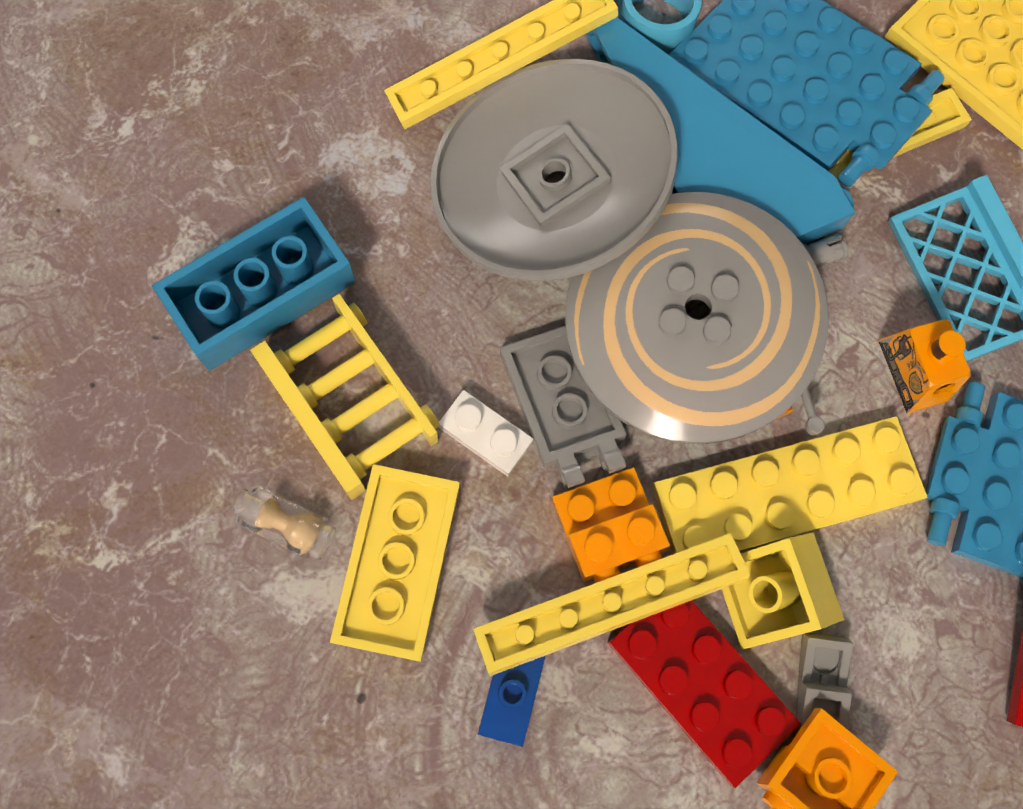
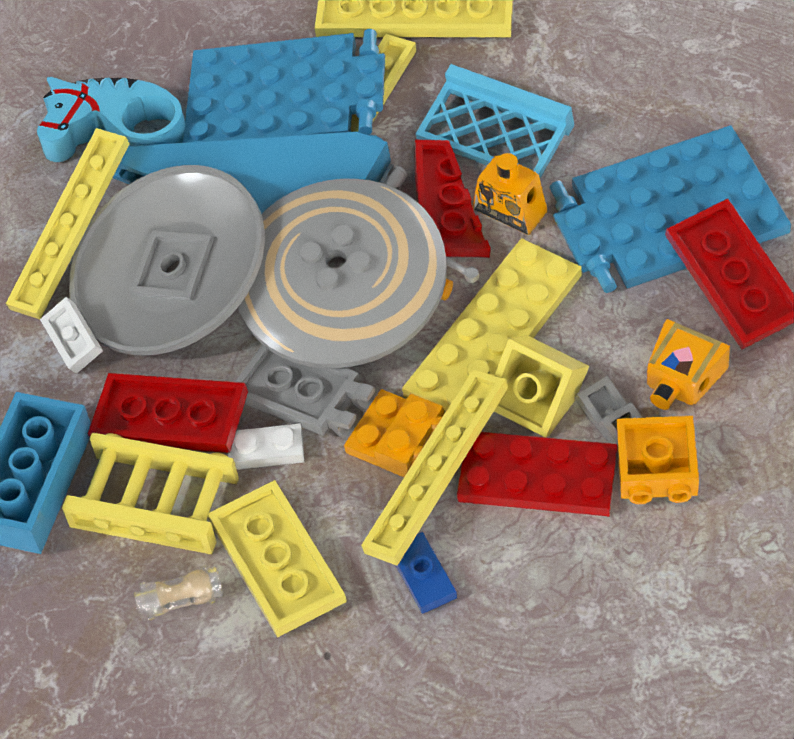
camera: 25 degrees left, 20 degrees down
(412, 171) = (71, 335): none -> white plate
(428, 327) = (170, 411): none -> red plate
(860, 313) = (447, 200): none -> red wing
(936, 695) = (684, 365): none -> light orange torso

